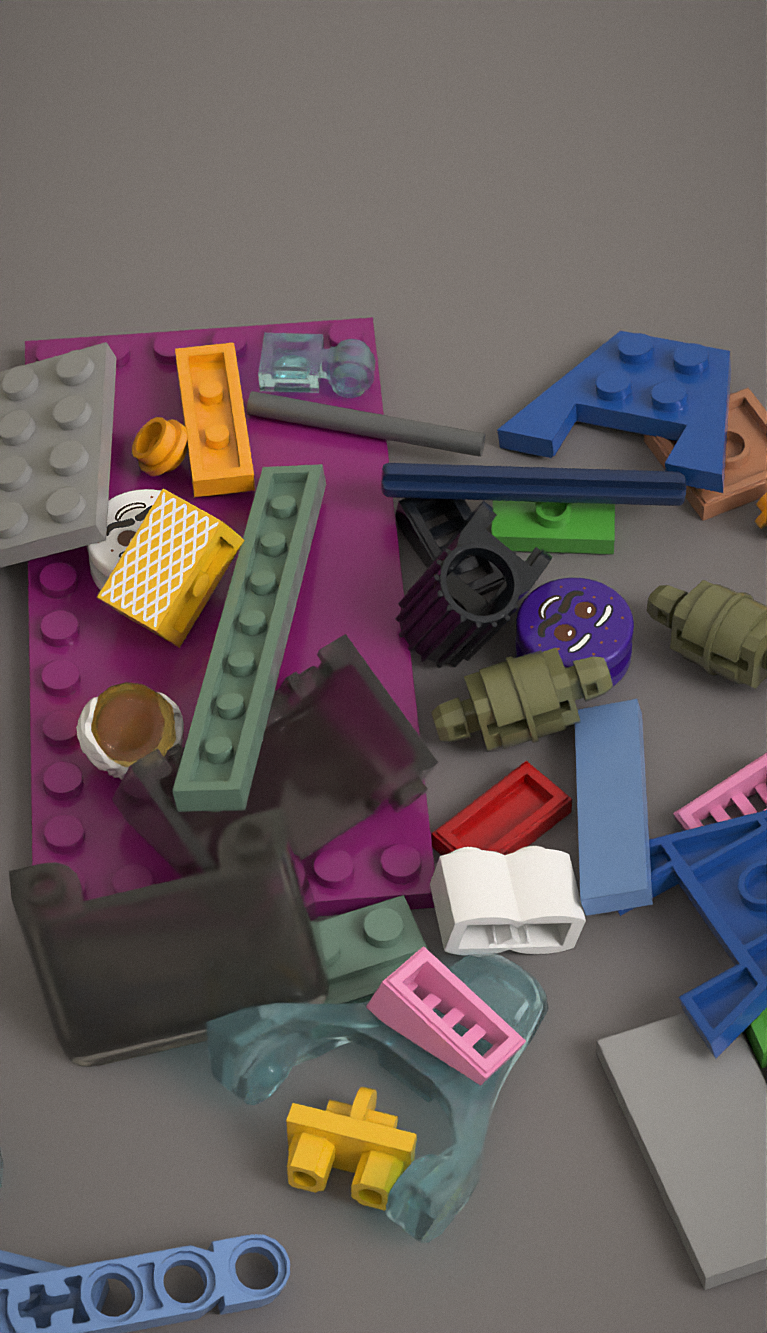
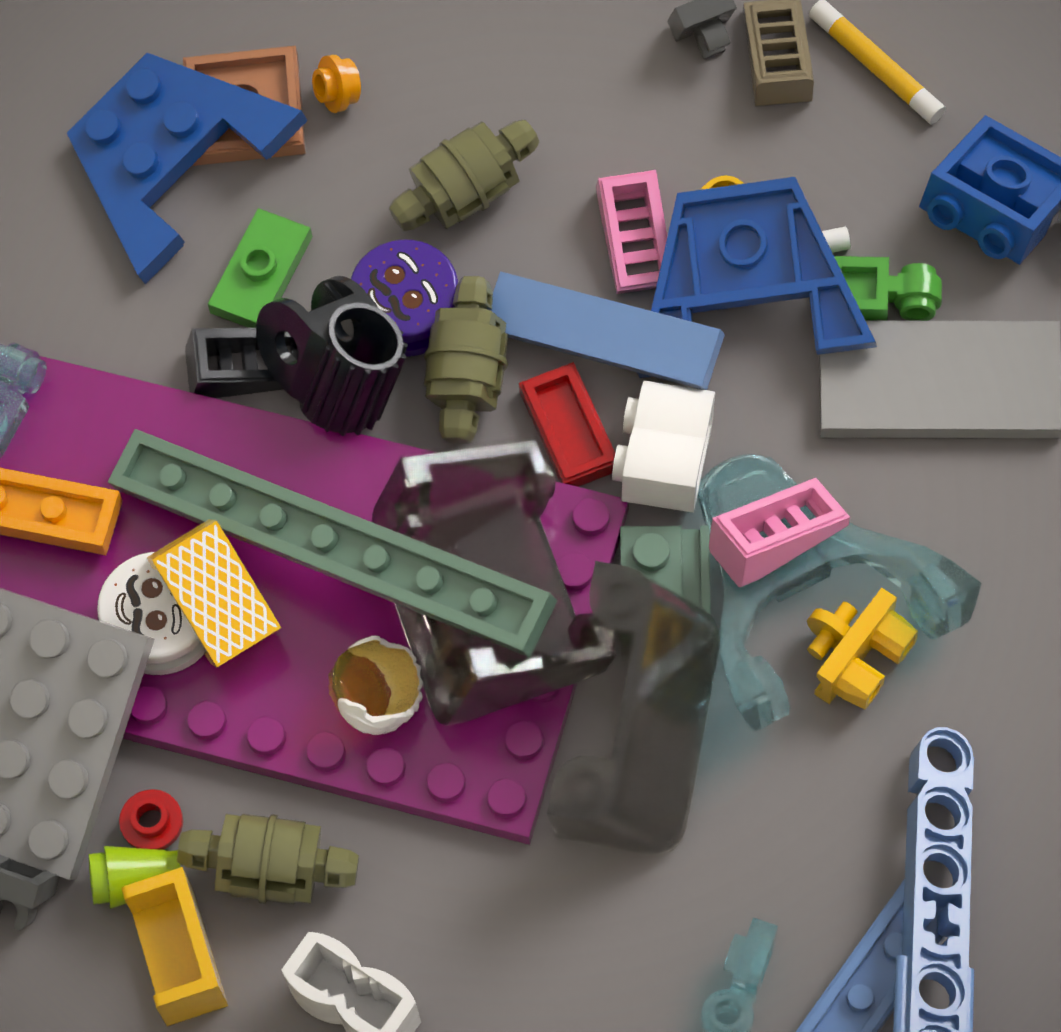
camera: 65 degrees left, 15 degrees up
(160, 446) = (27, 570): light orange plate -> none
(366, 423) = (85, 380): dark grey bar -> none
(533, 484) = (236, 266): dark blue axle -> none

